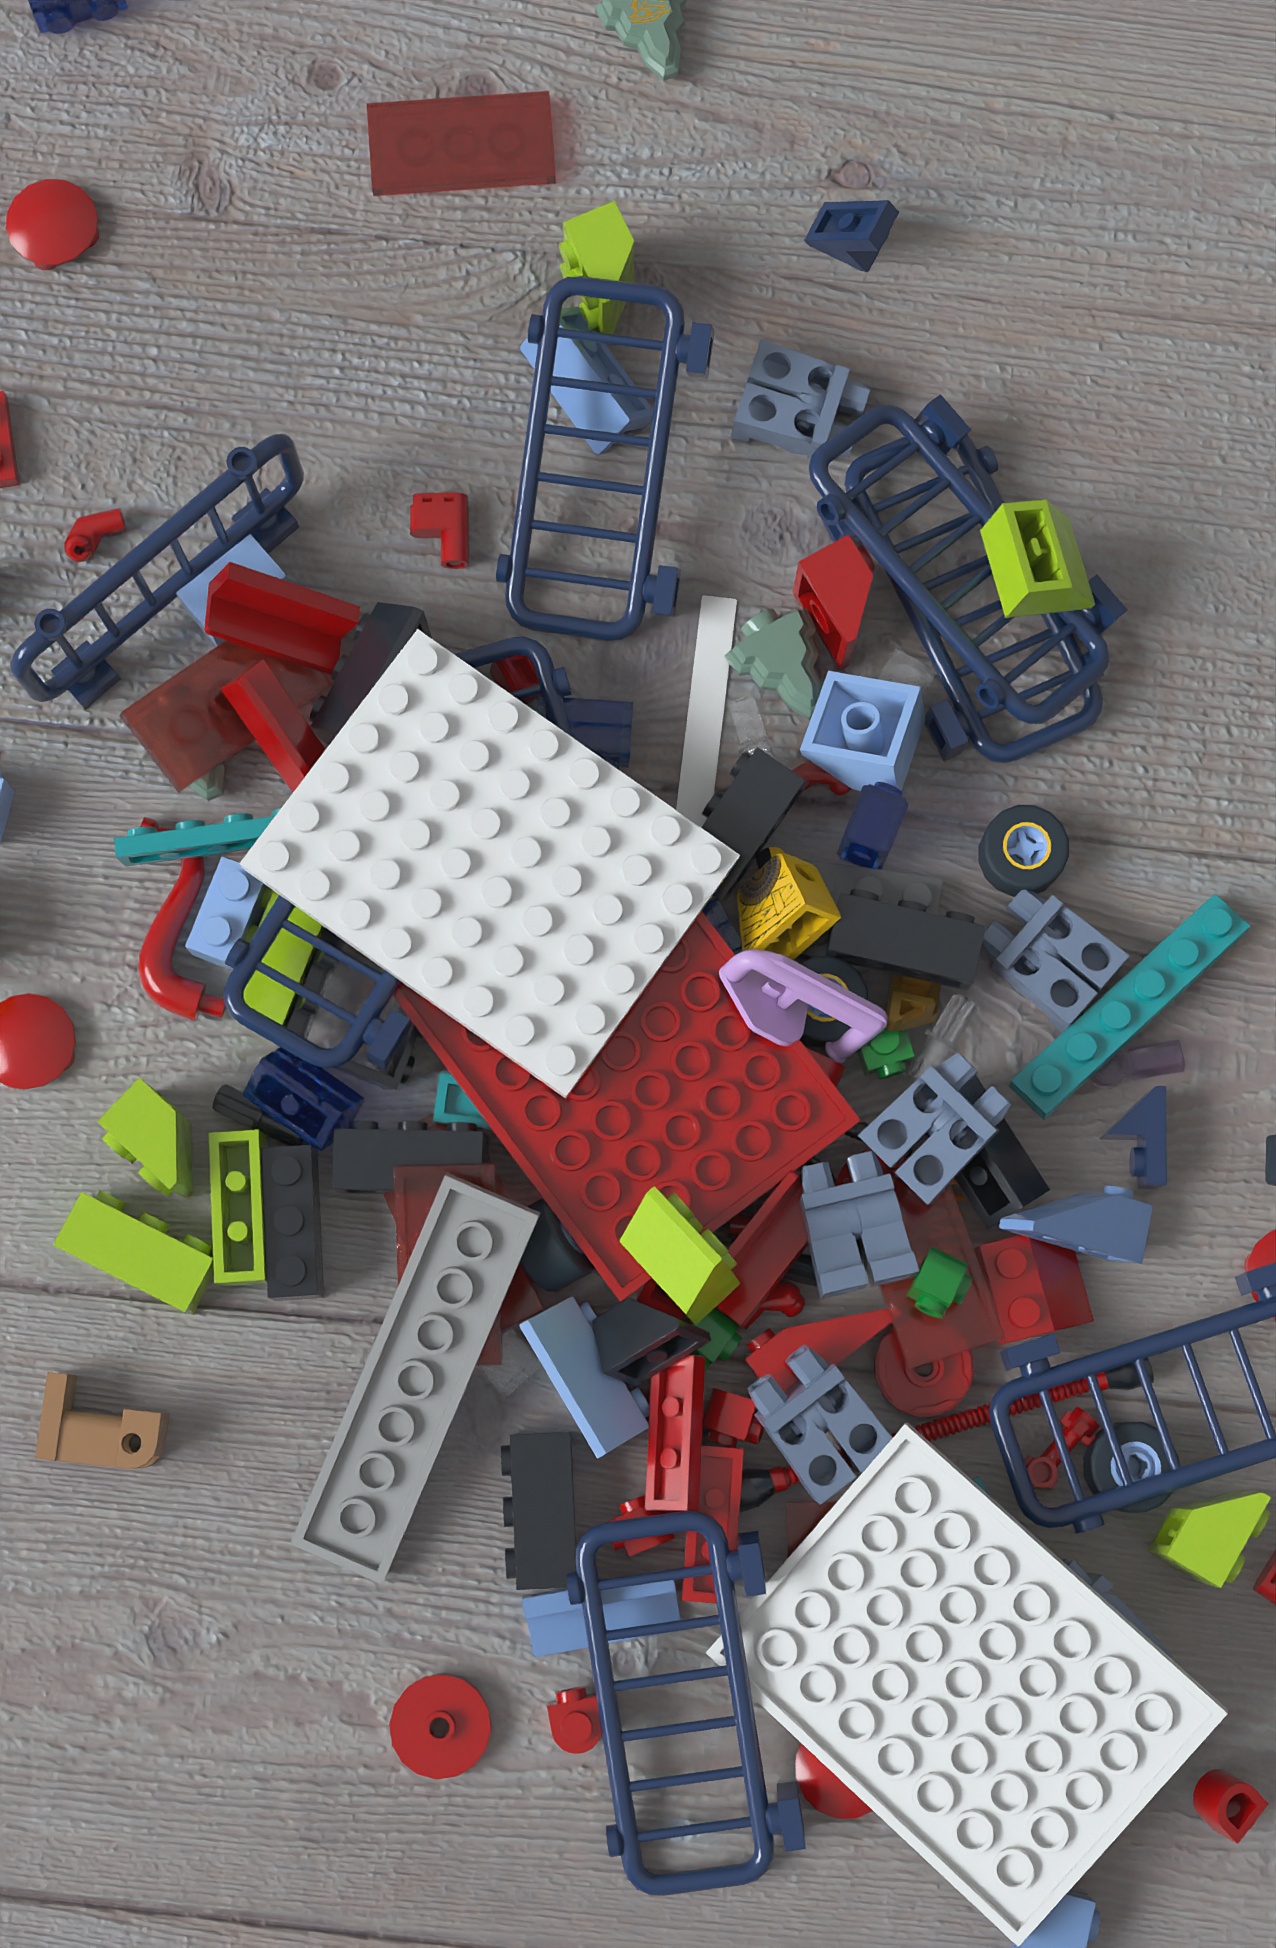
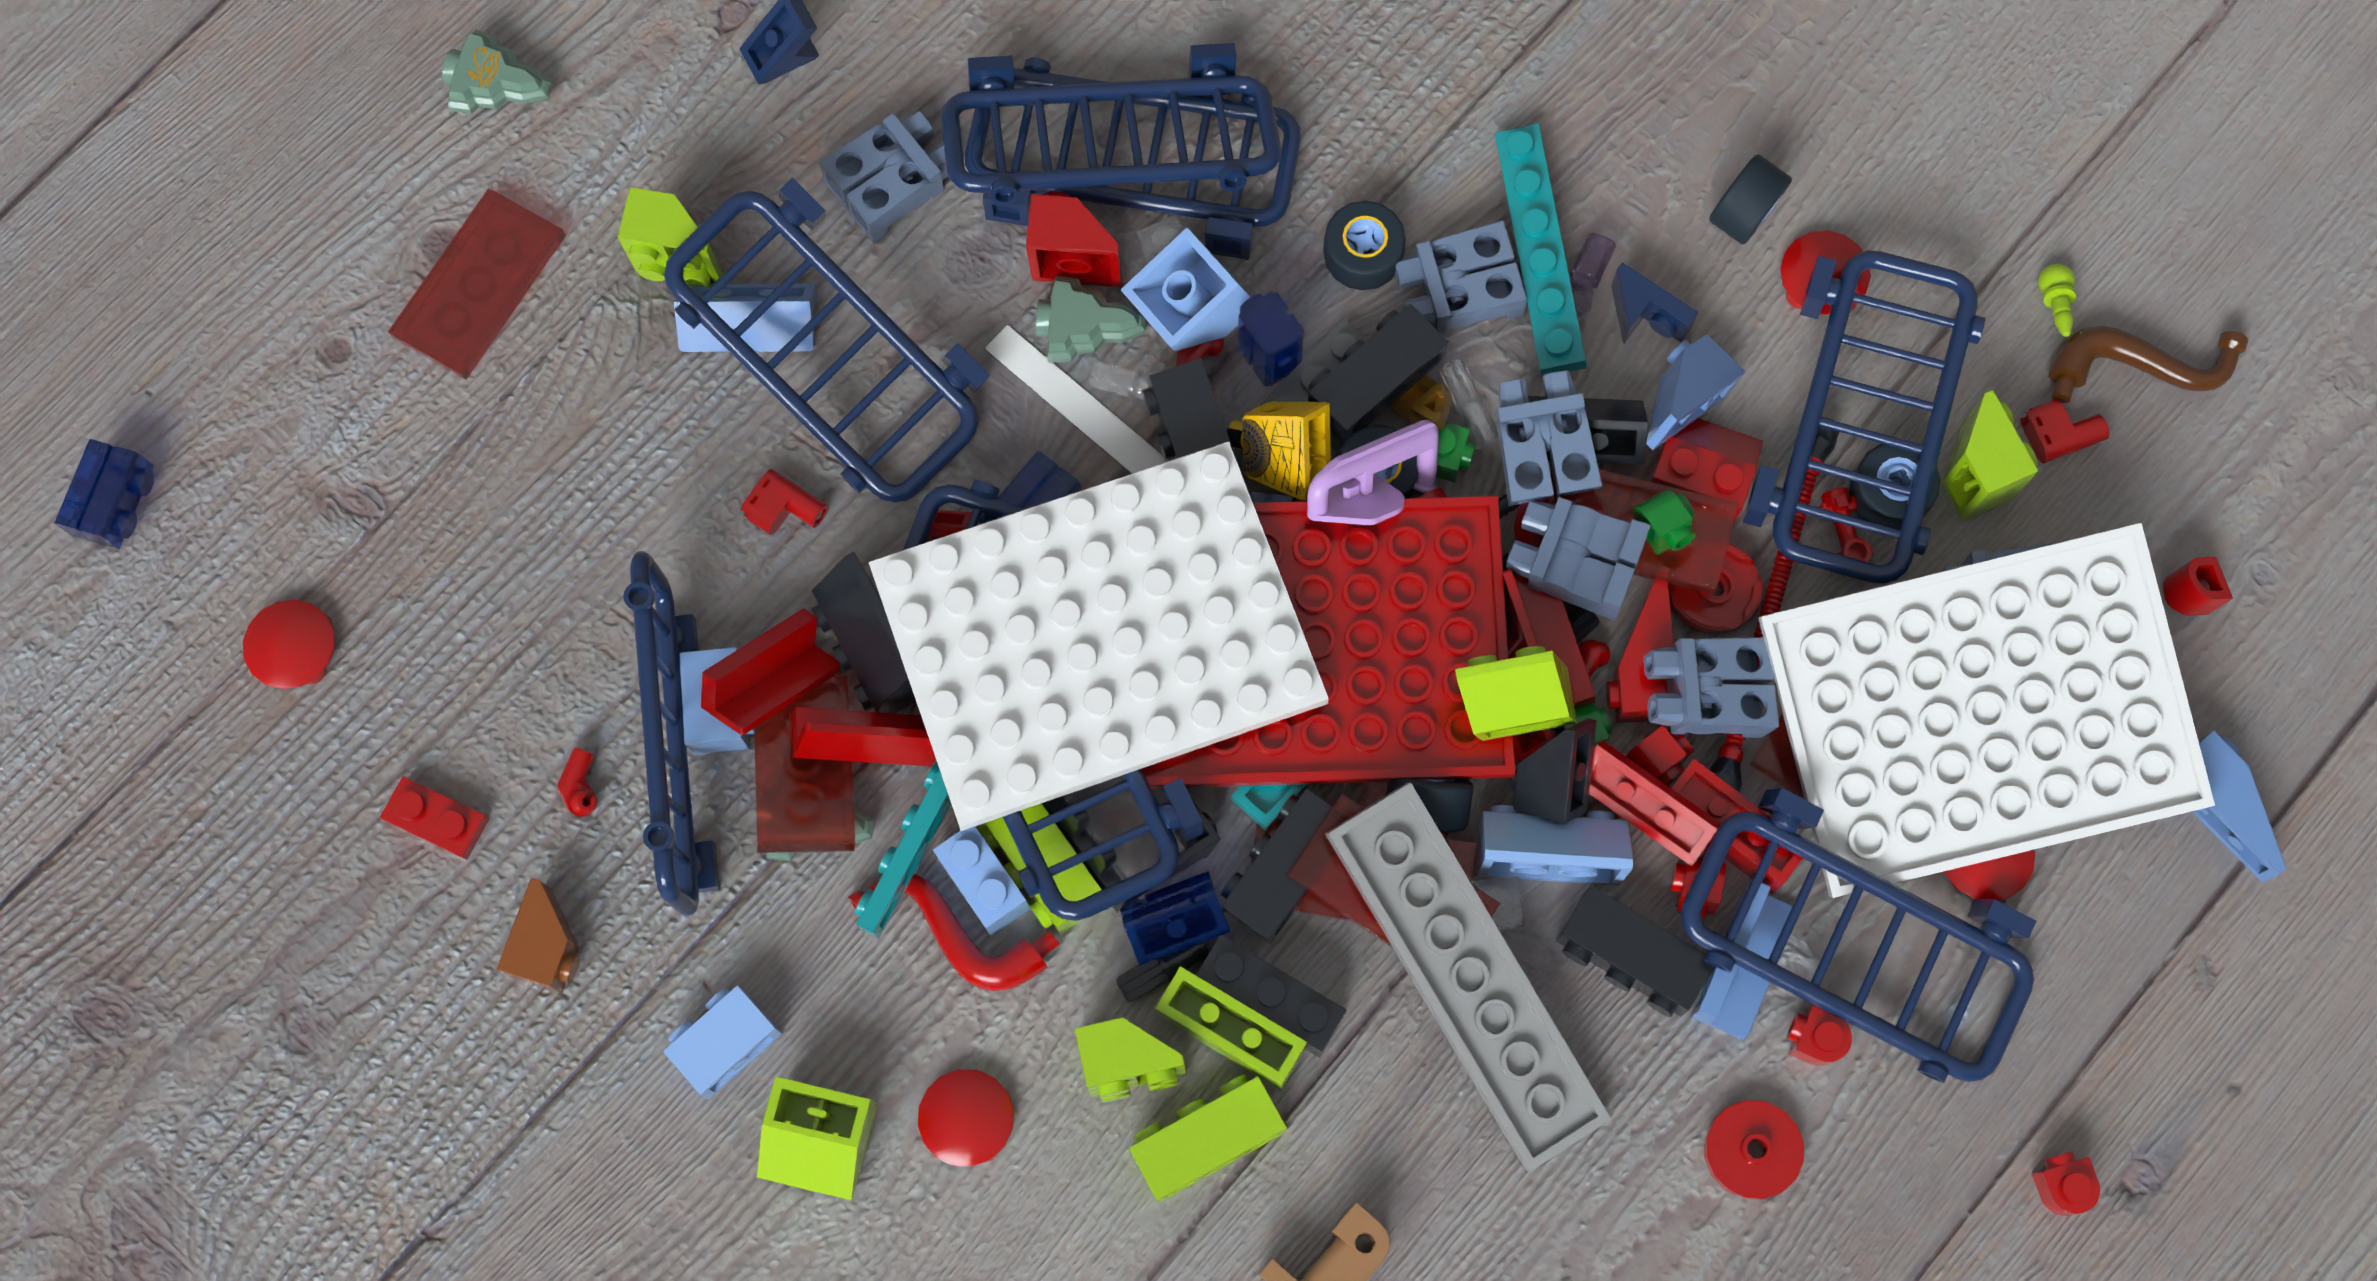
camera: 50 degrees left, 5 degrees down
(1035, 560) = (1151, 77): lime slope -> none

